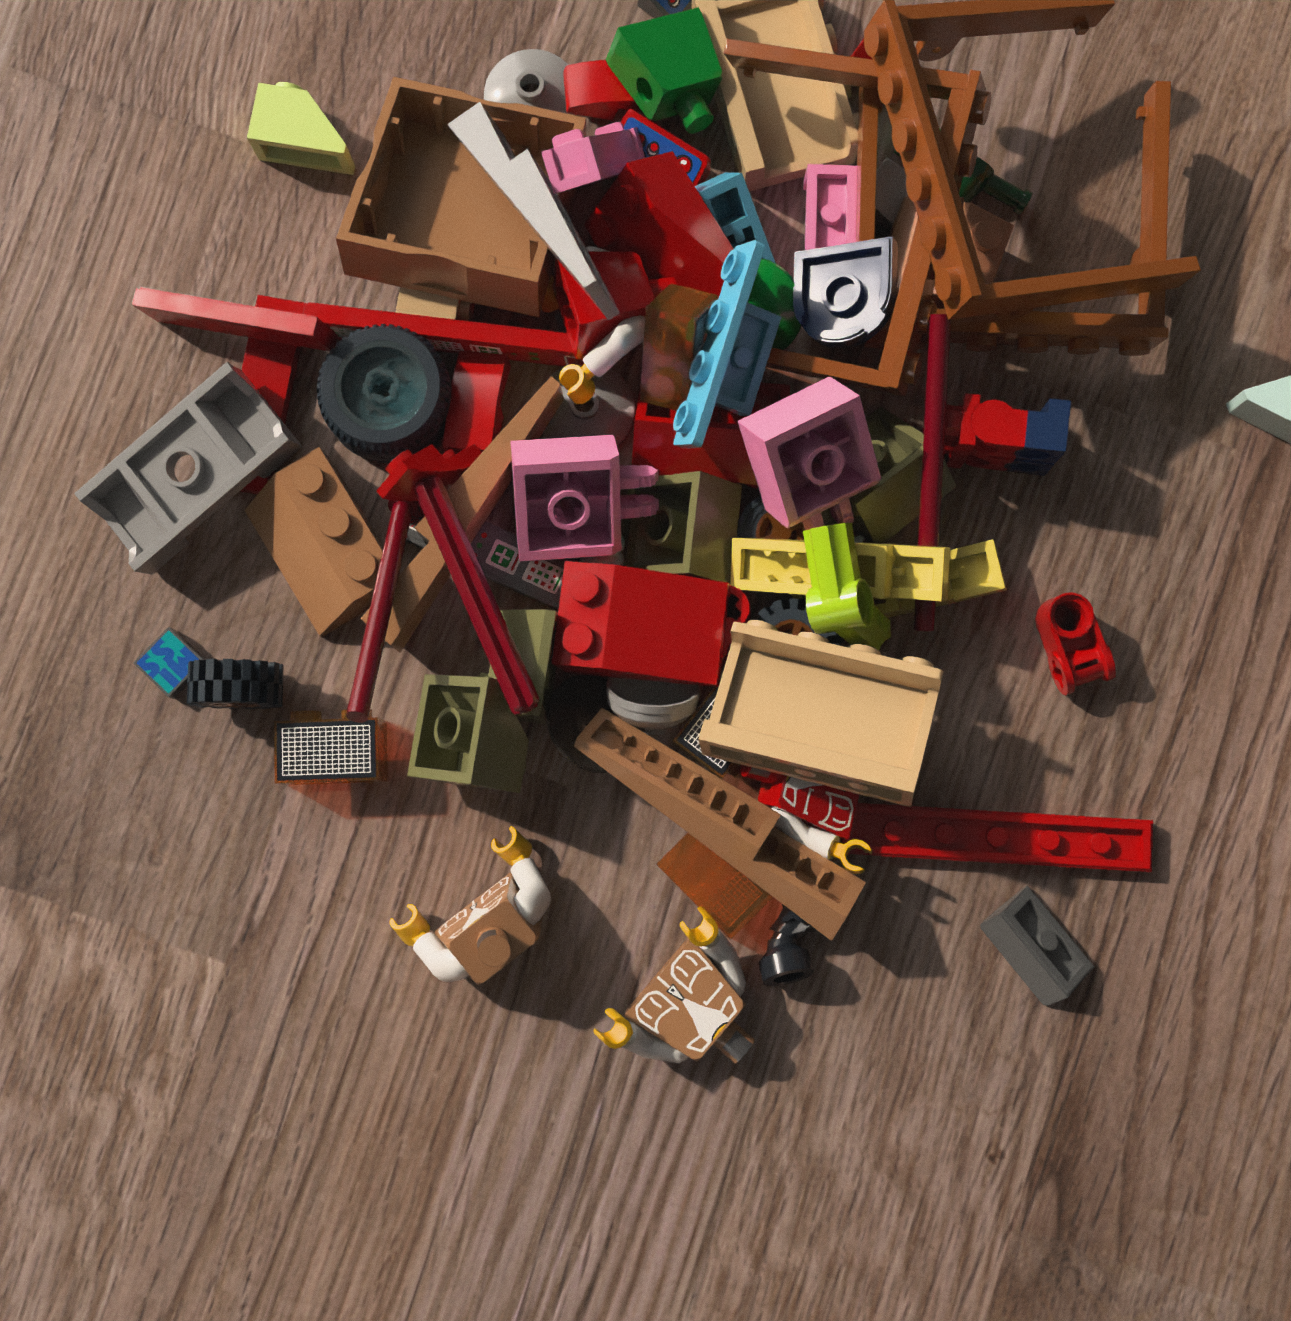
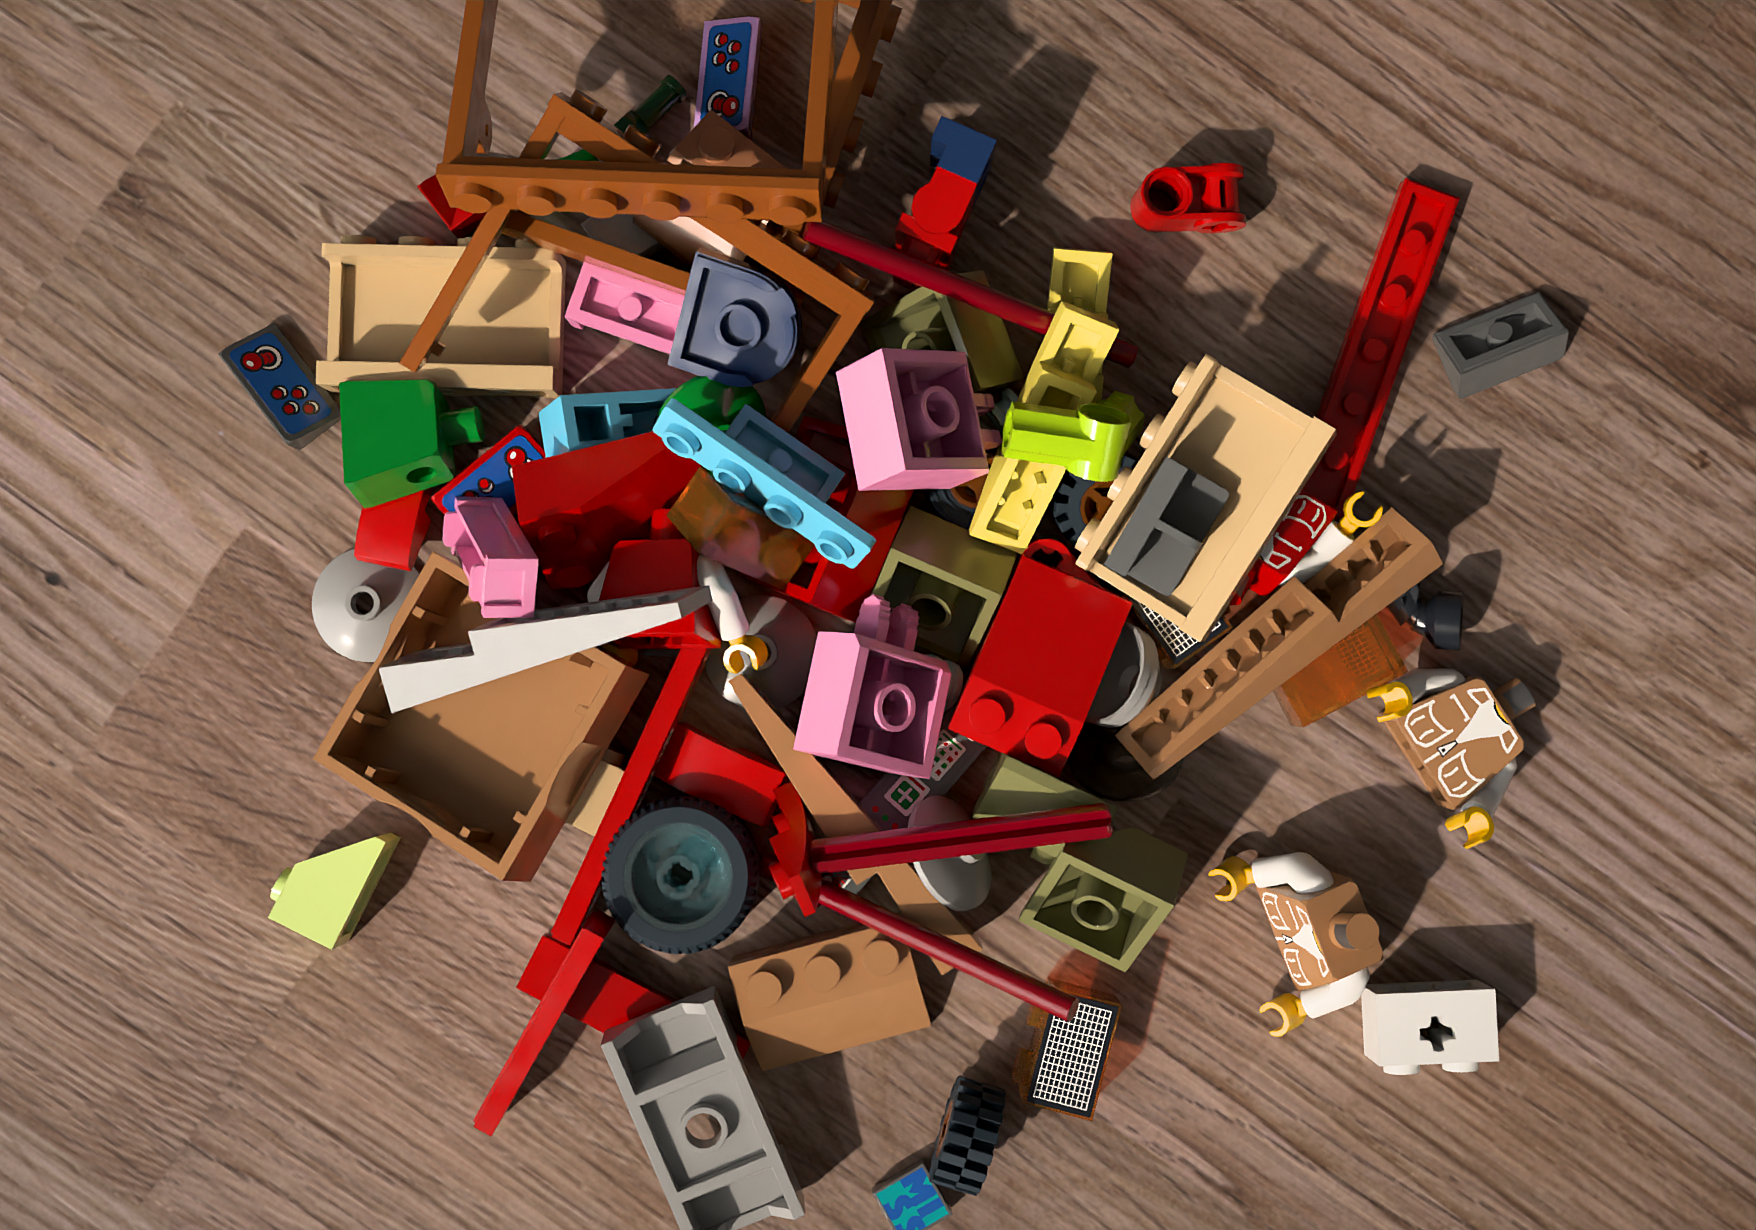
camera: 80 degrees left, 5 degrees up
(443, 613) = (954, 881): none -> light grey dish
(458, 1071) = (1464, 1032): none -> white brick
(788, 685) = (1167, 527): none -> dark grey panel
(1050, 243) = (729, 71): none -> slope

